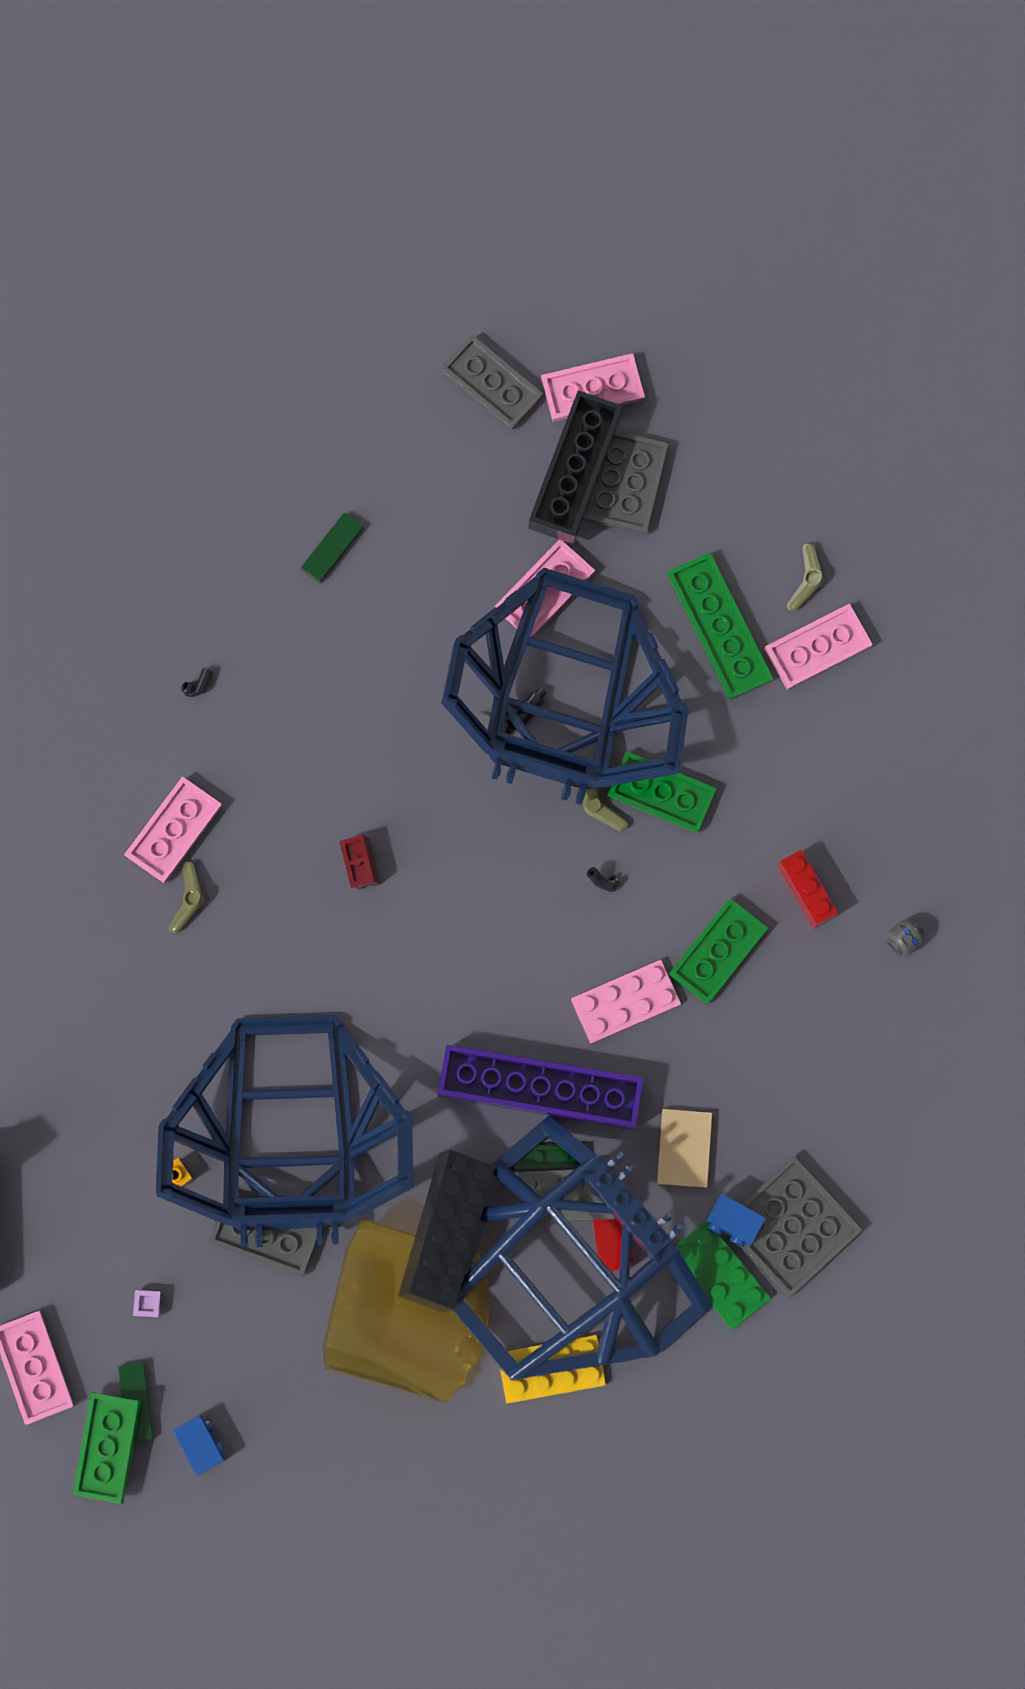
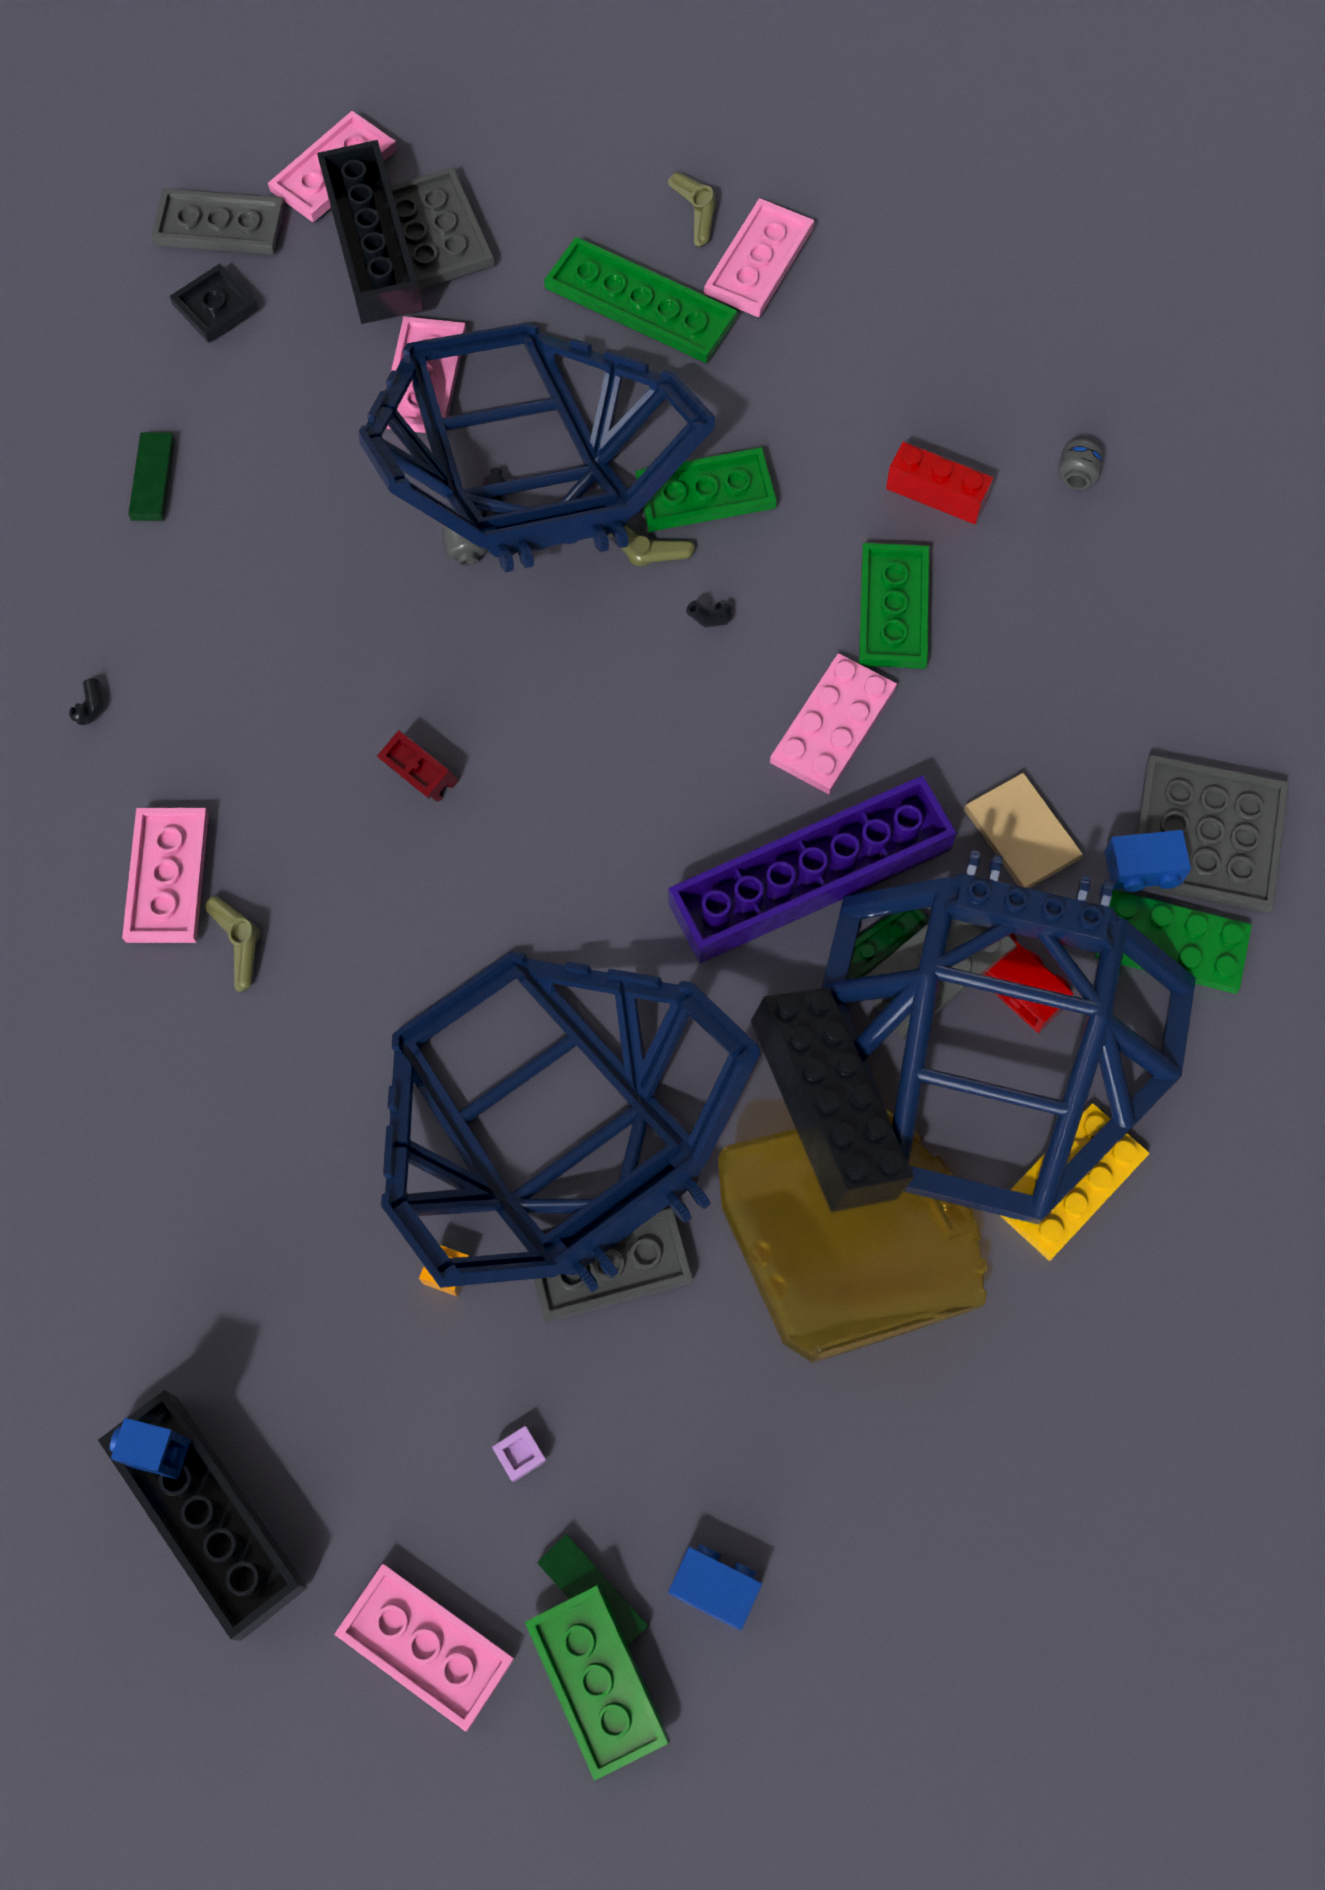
camera: 30 degrees left, 10 degrees down
(449, 444) = (214, 302): none -> black plate

